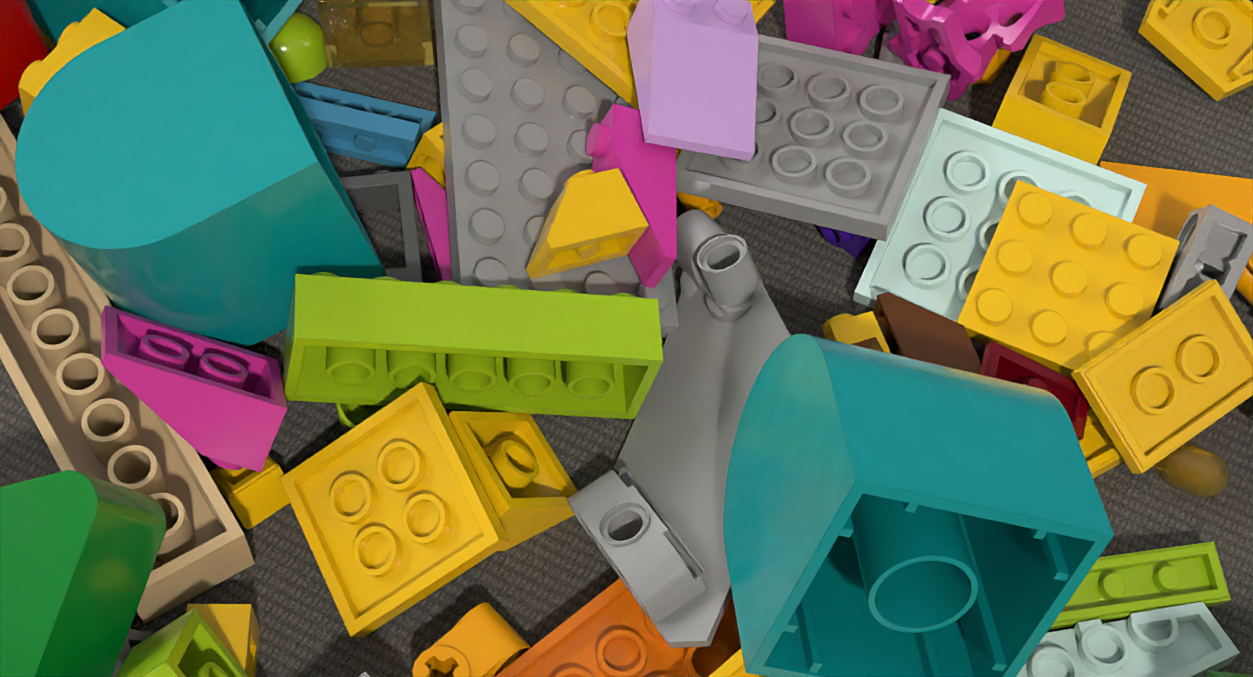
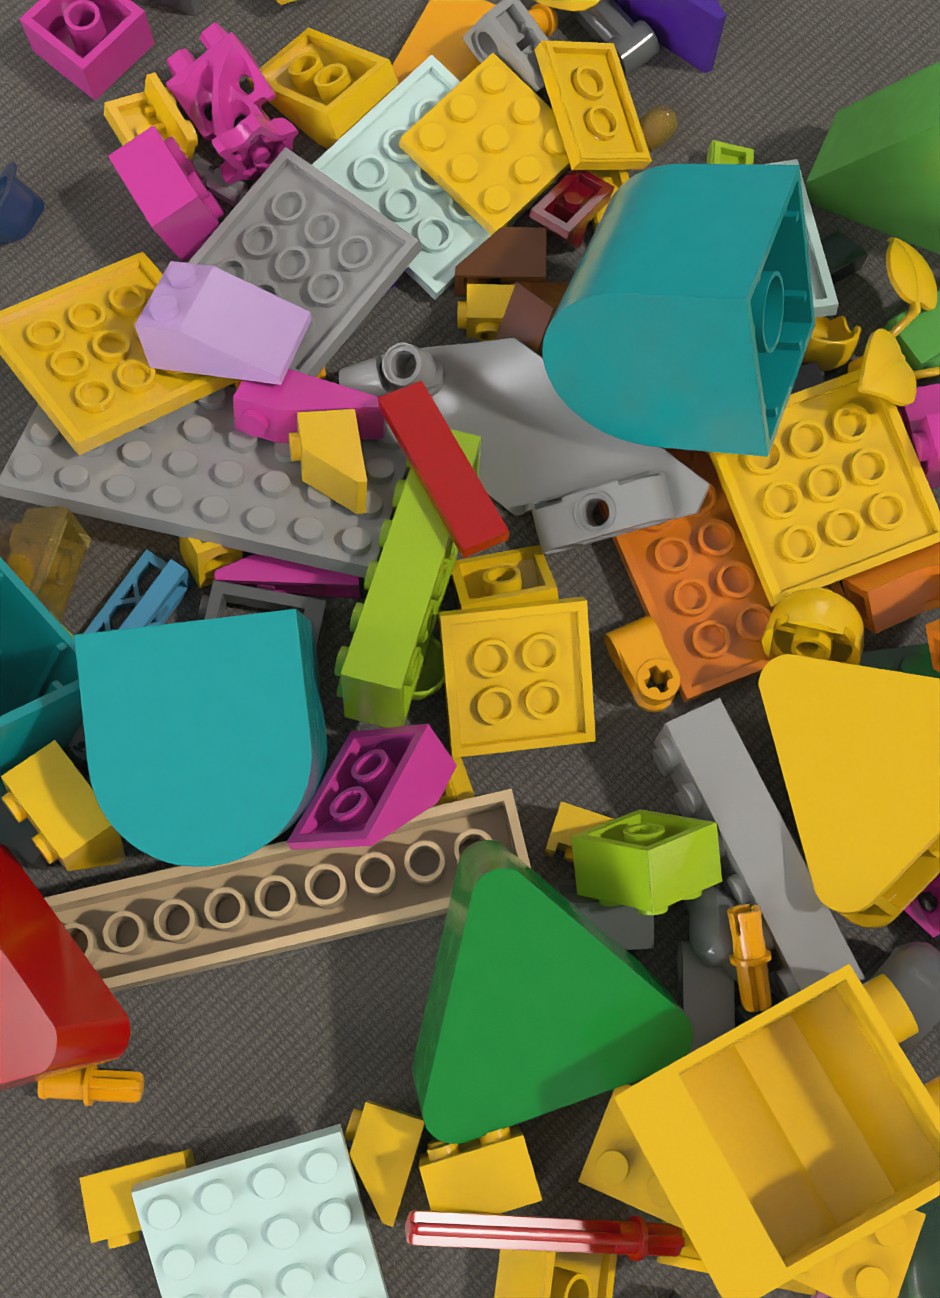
camera: 70 degrees left, 15 degrees up
(595, 323) = (443, 469): none -> red tile

